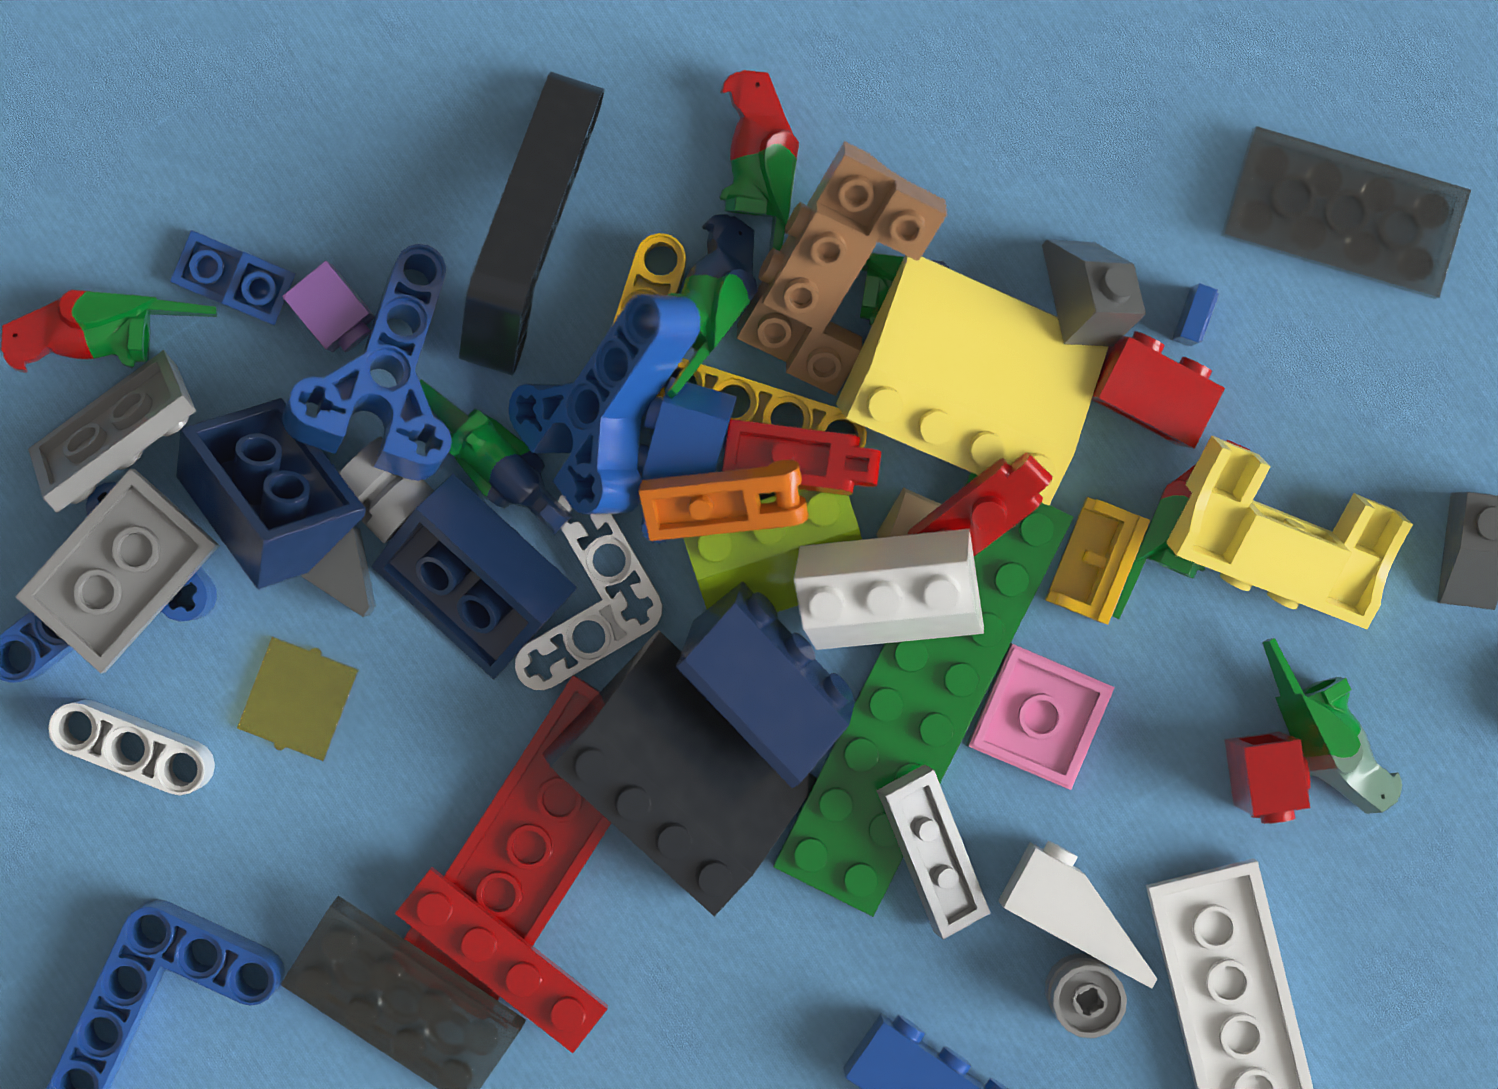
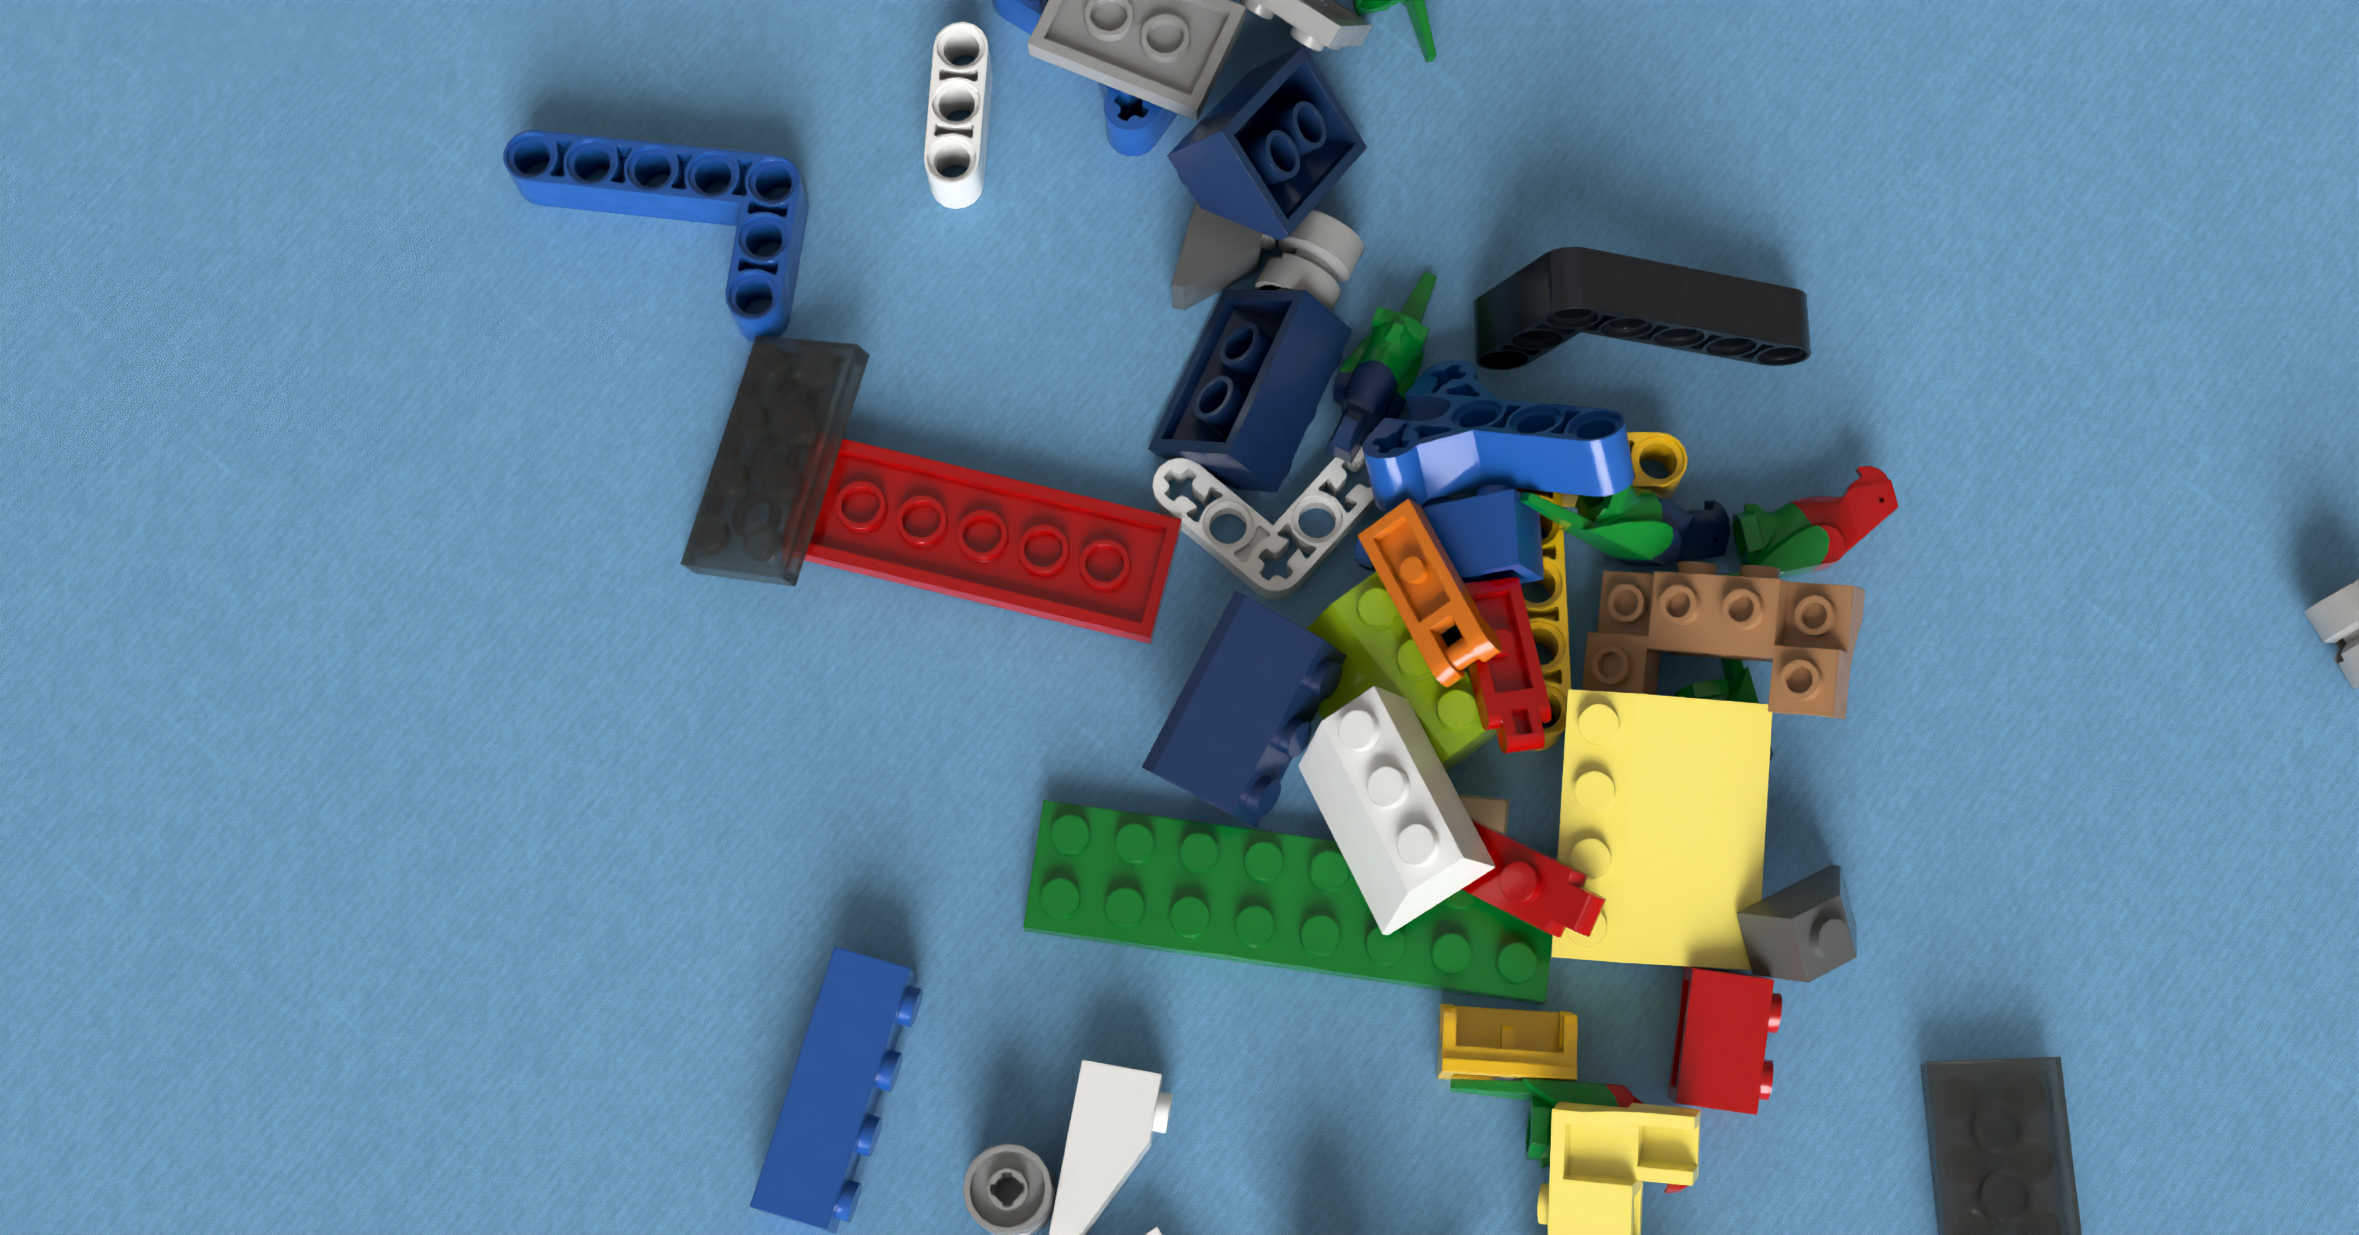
camera: 70 degrees right, 15 degrees down
(232, 277) = (1471, 63): blue slope -> none
(298, 698) = (1061, 264): clear yellow piece -> none
(330, 308) = (1477, 161): medium lavender brick -> none
(352, 389) = (1381, 169): blue beam -> none
(502, 960) = (852, 542): red plate -> none
(676, 776) = (1106, 657): black slope -> none
(933, 851) = (1118, 964): plate -> none
(1040, 716) = (1309, 1043): bright pink tile -> none
(1195, 314) = (1822, 1061): blue tile -> none

